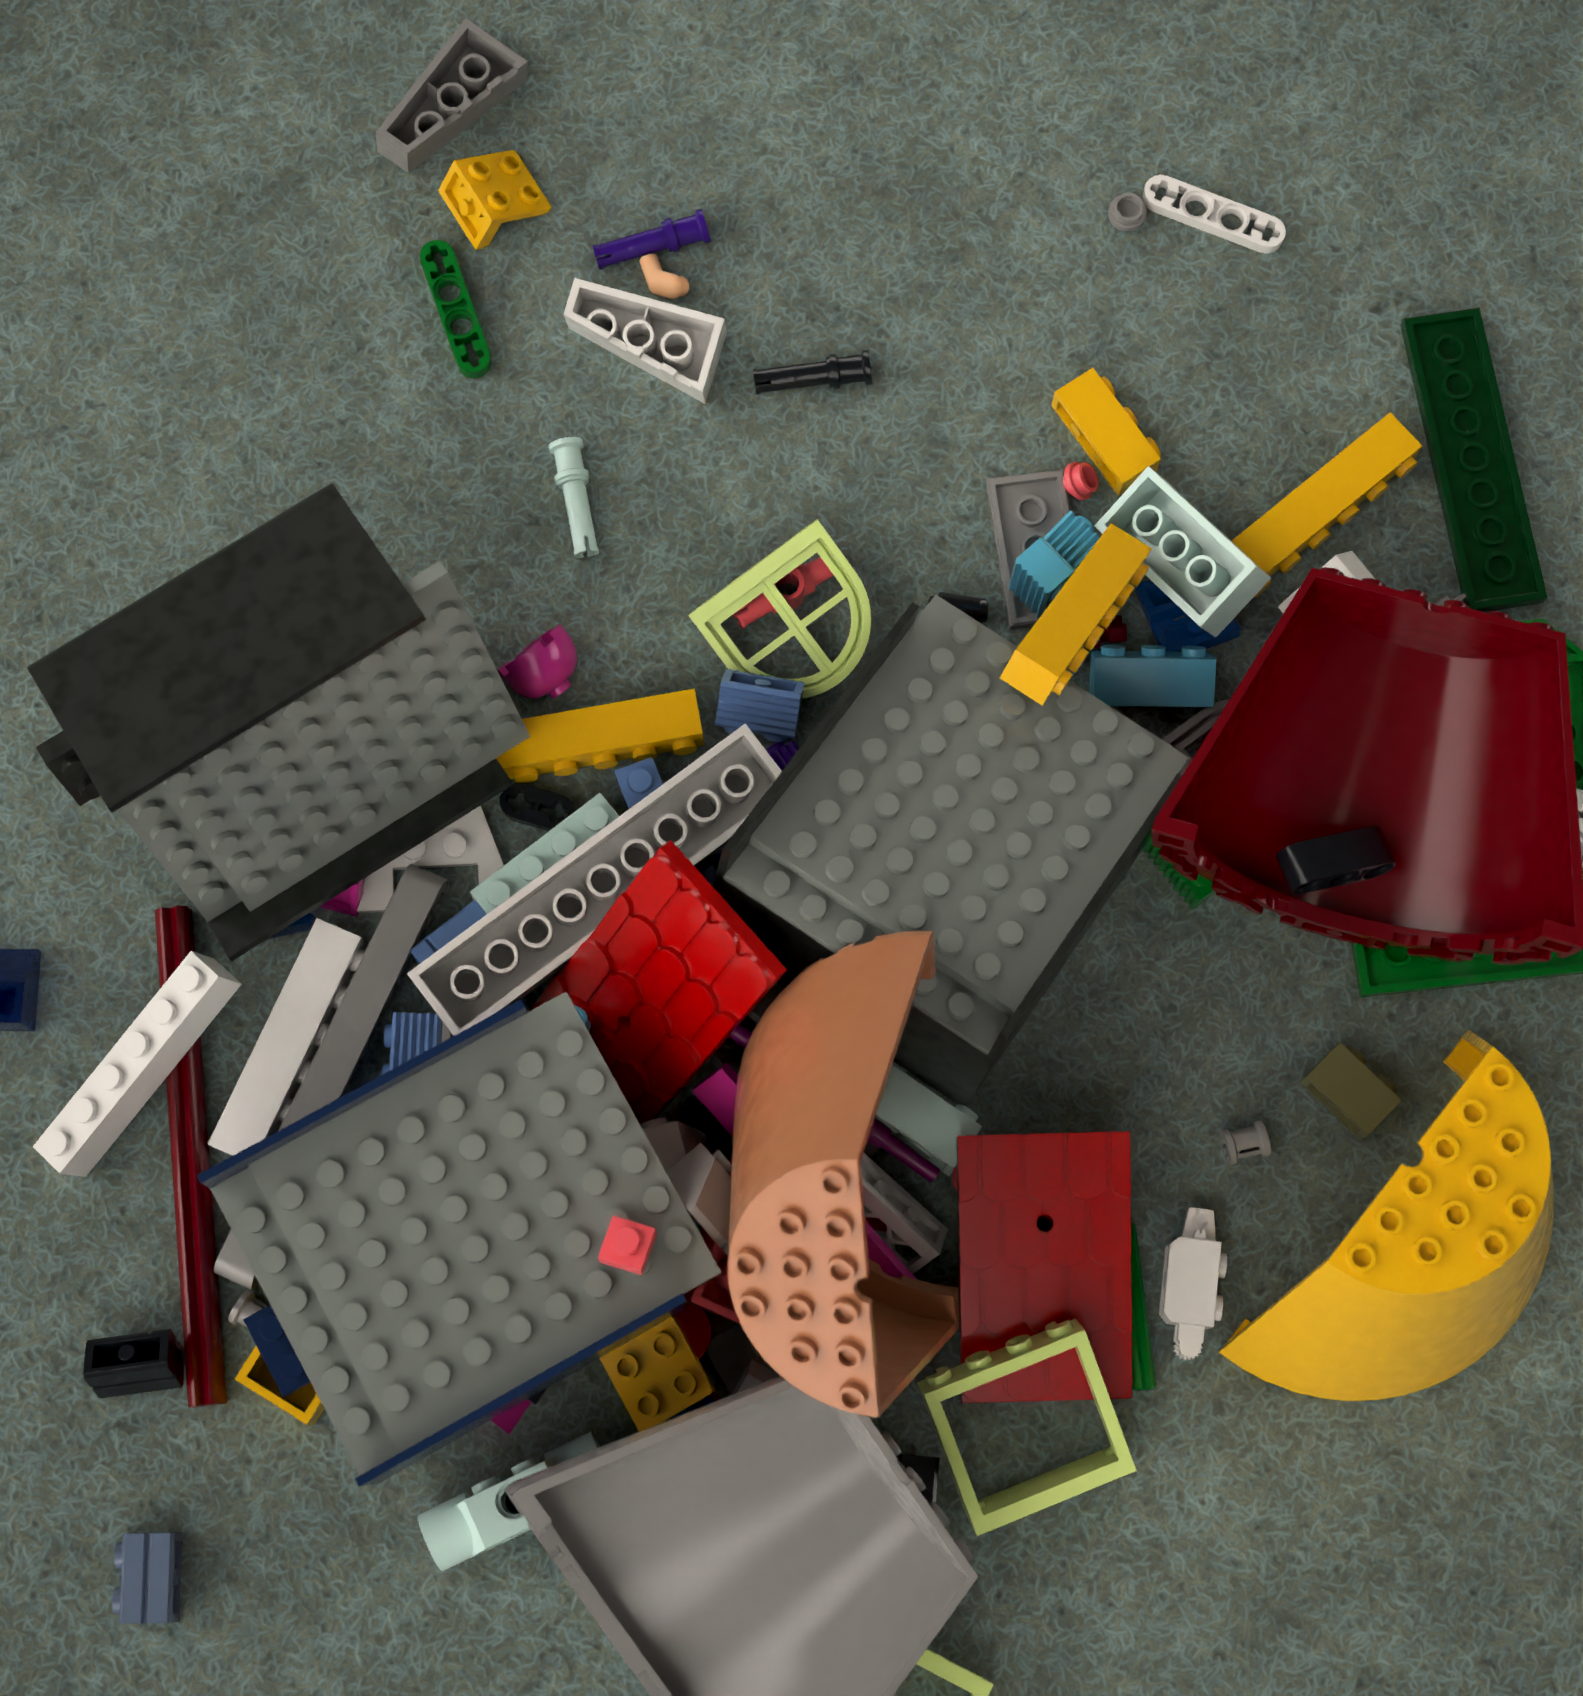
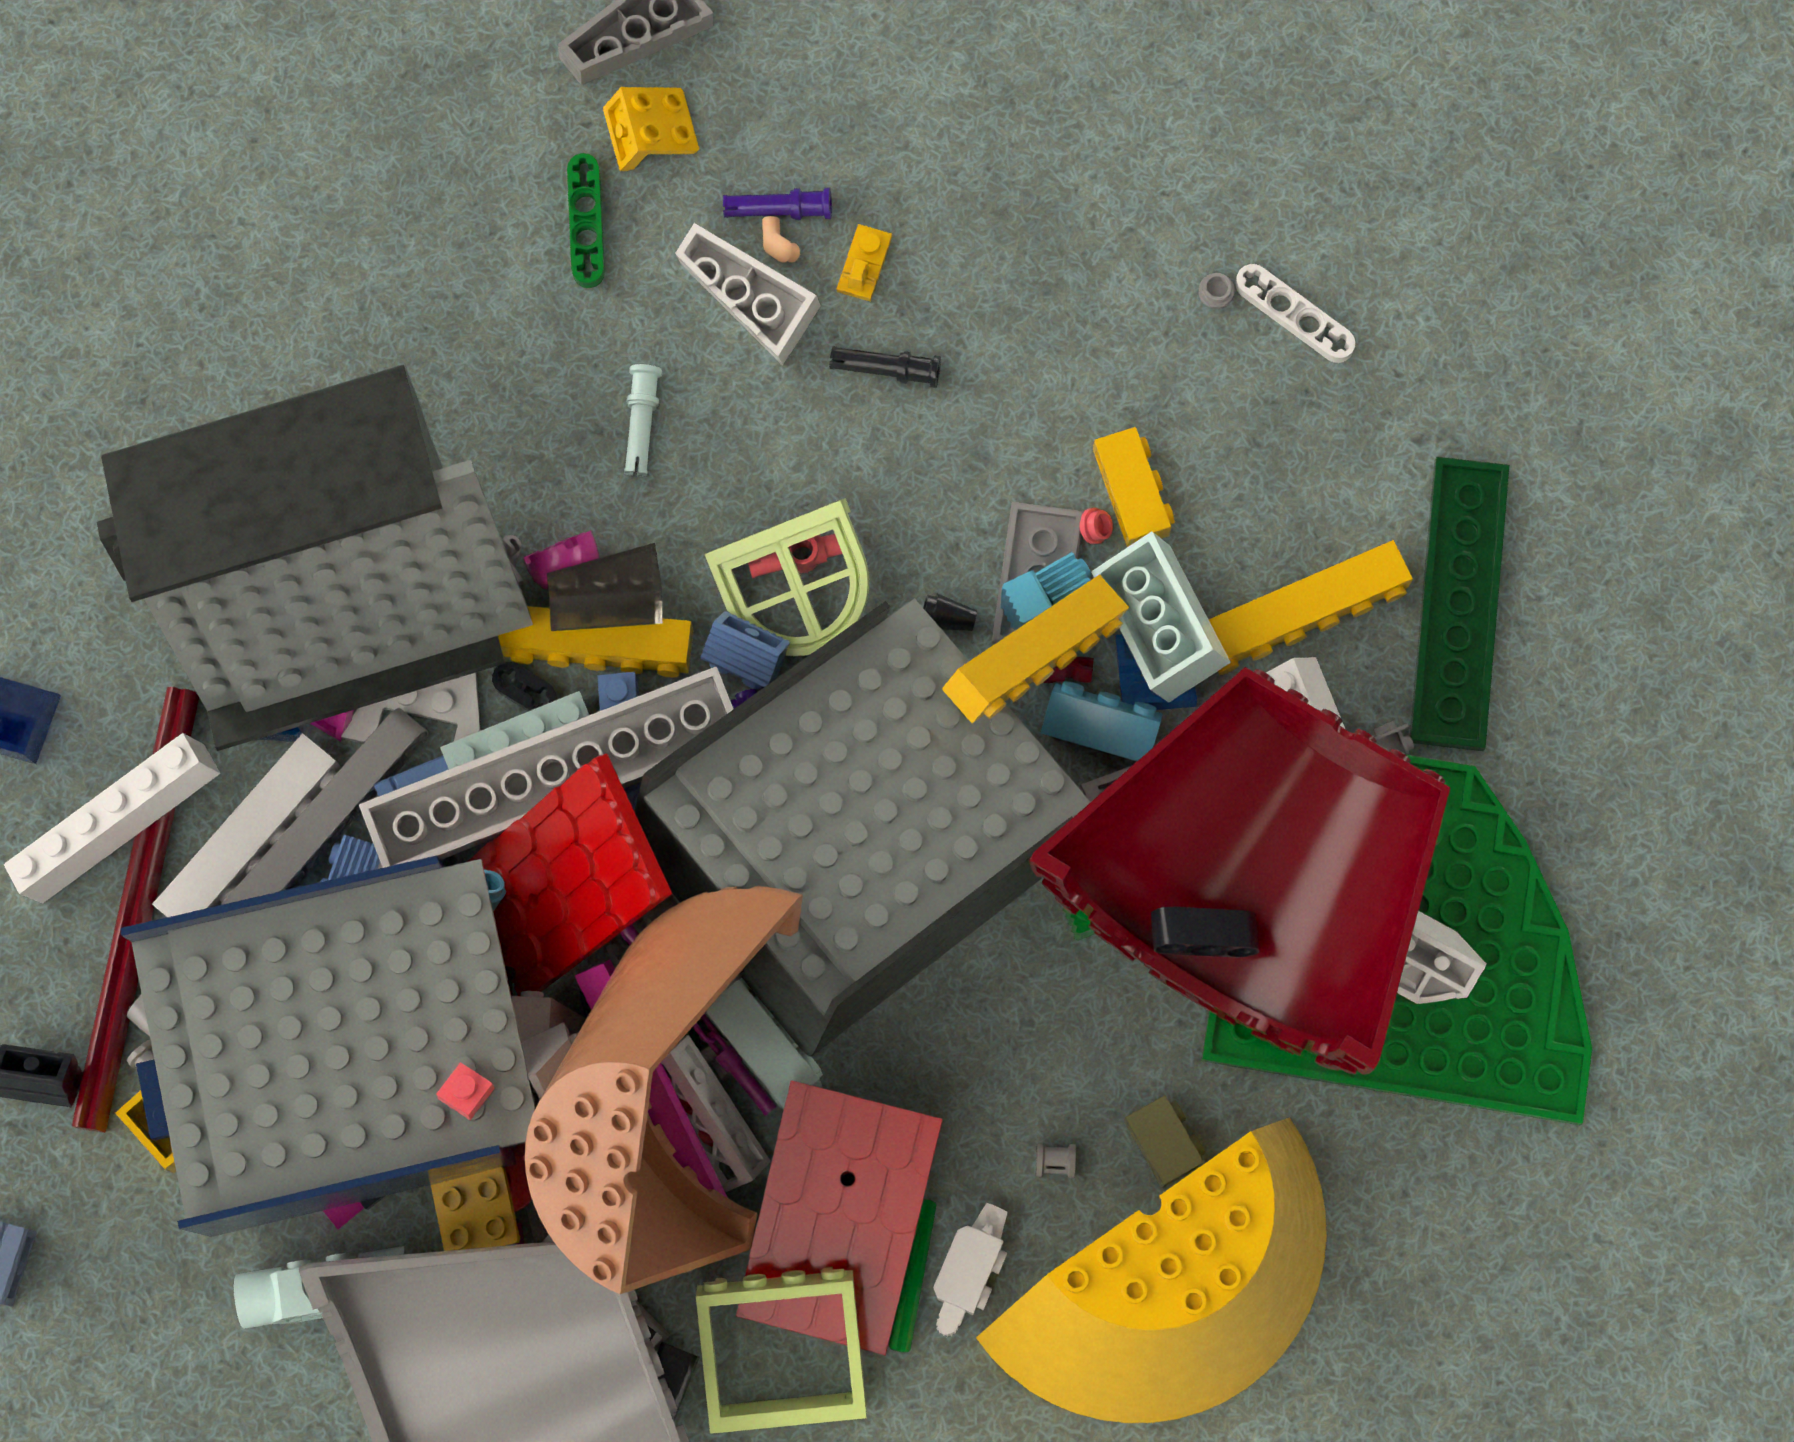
camera: 20 degrees right, 0 degrees up
(599, 681) = (607, 592): none -> clear smoke wedge
(758, 277) = (864, 262): none -> yellow hinge

